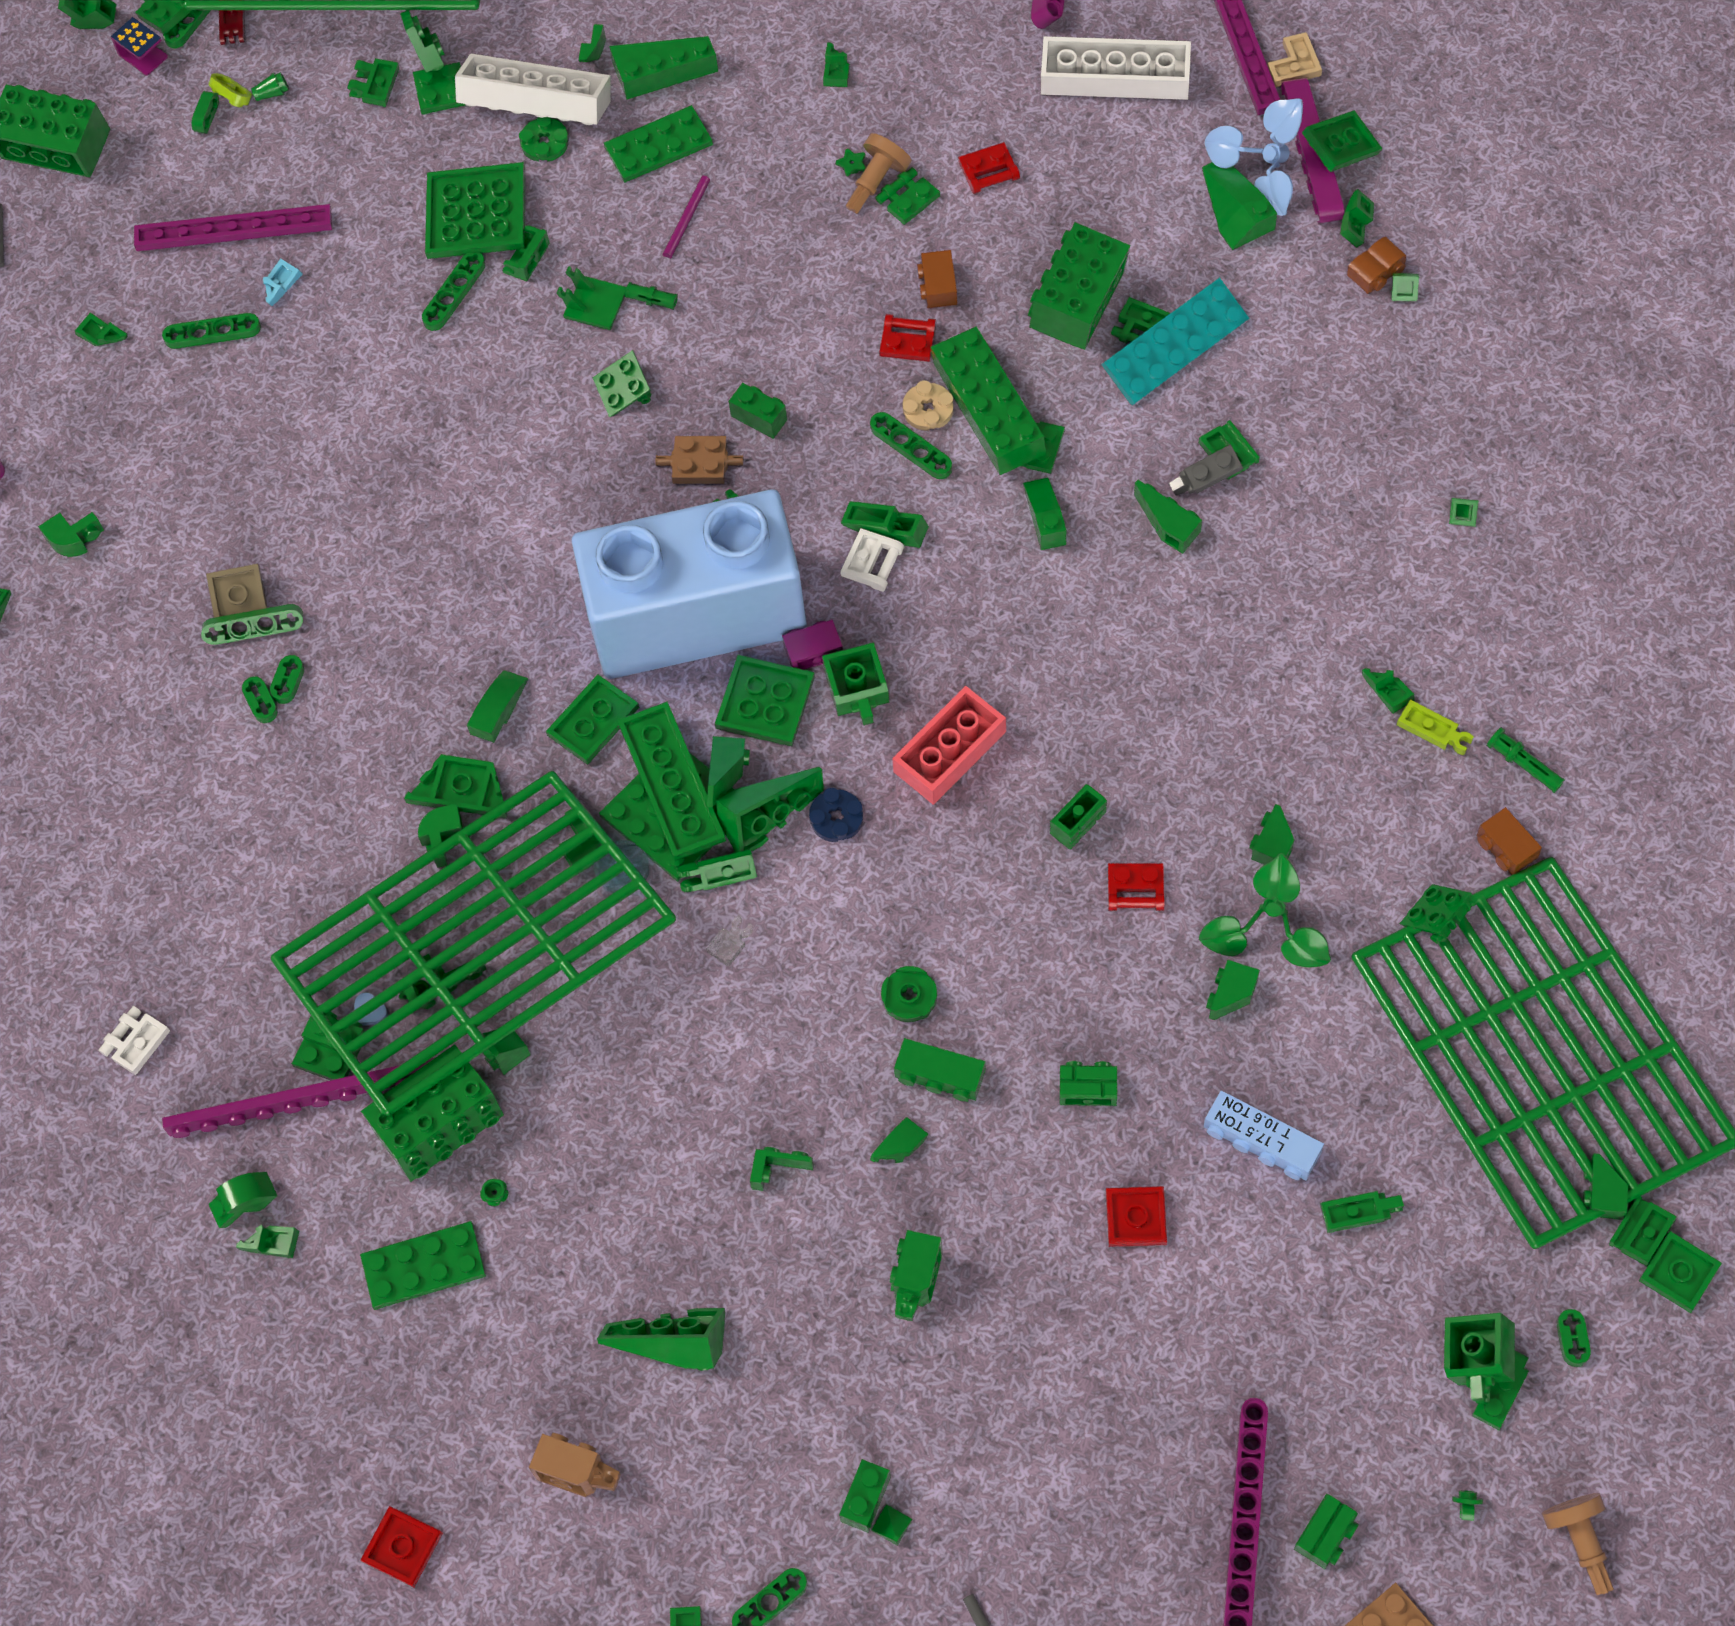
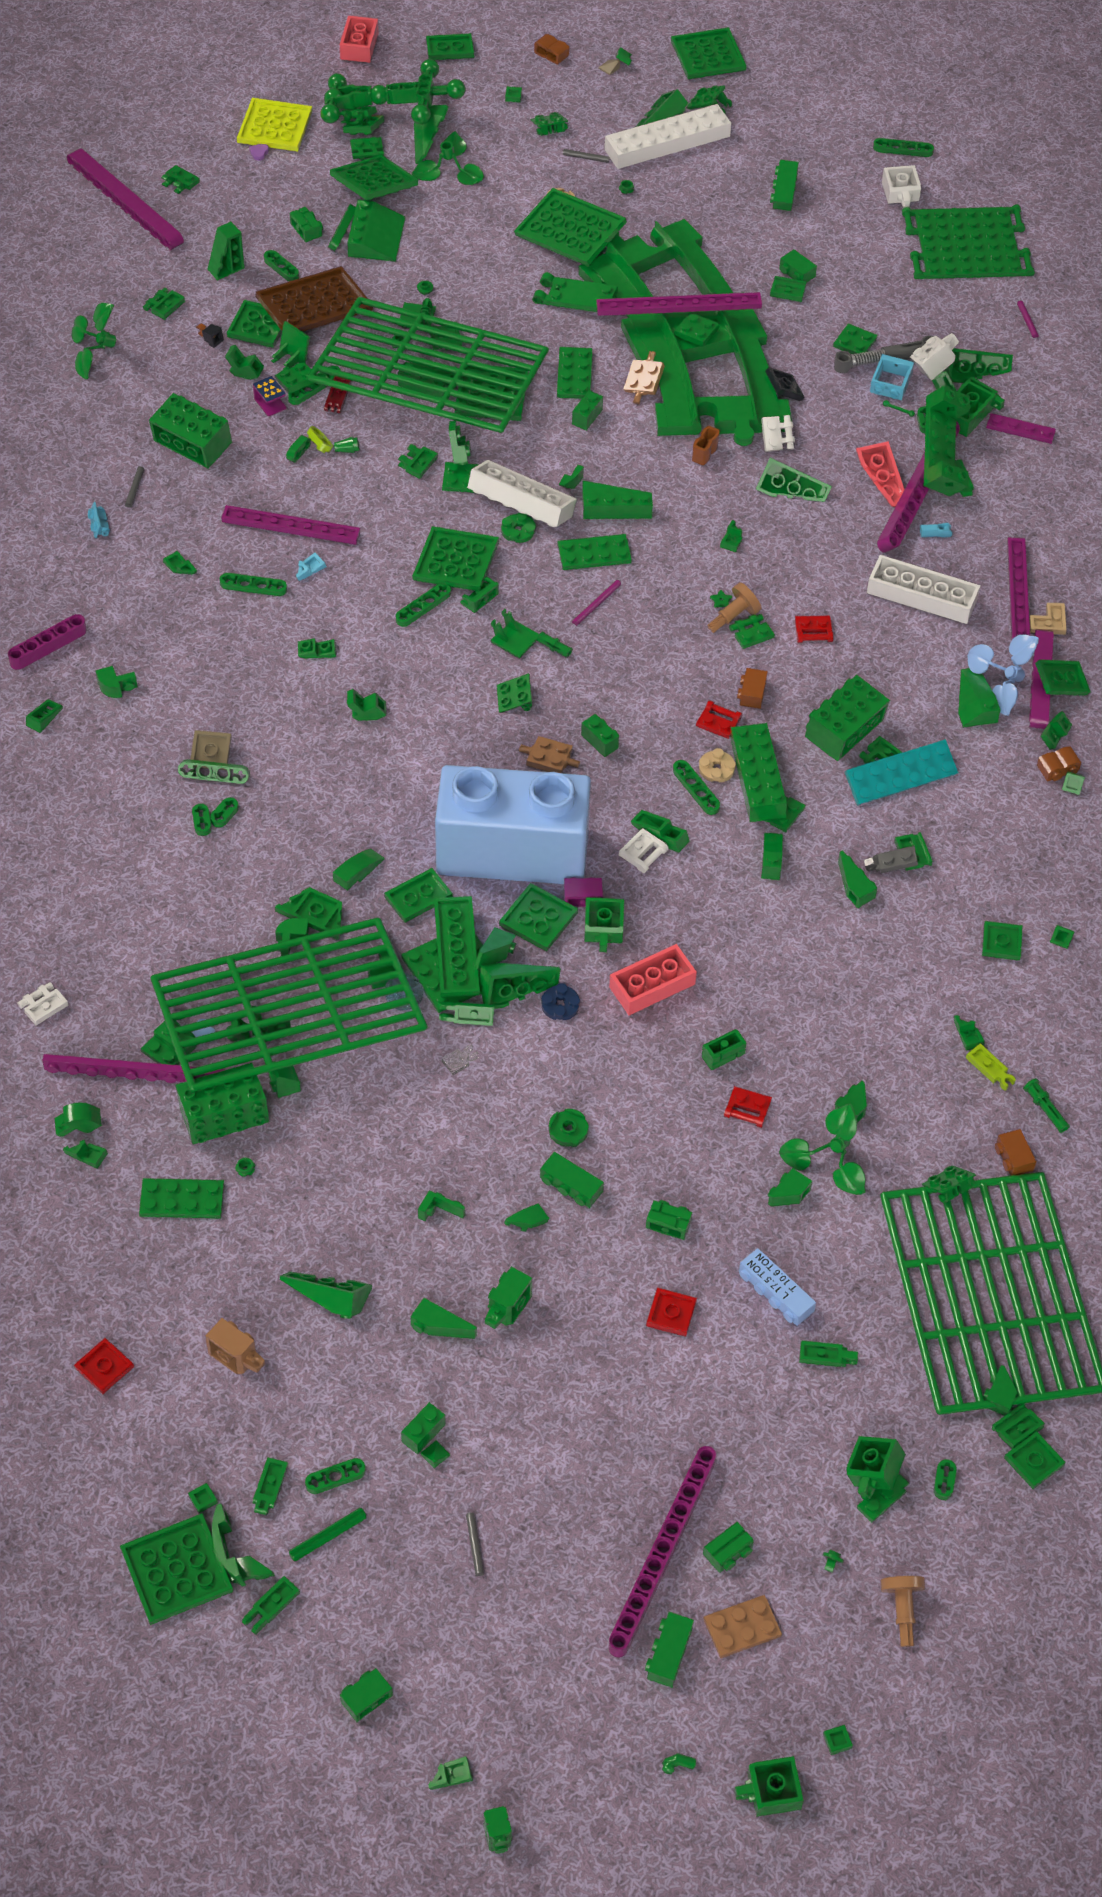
camera: 10 degrees right, 10 degrees down
(326, 402) = (313, 649): none -> green slope
(429, 467) = (366, 708): none -> green brick
(831, 1333) = (437, 1321): none -> green slope
(1388, 542) = (1002, 940): none -> green plate

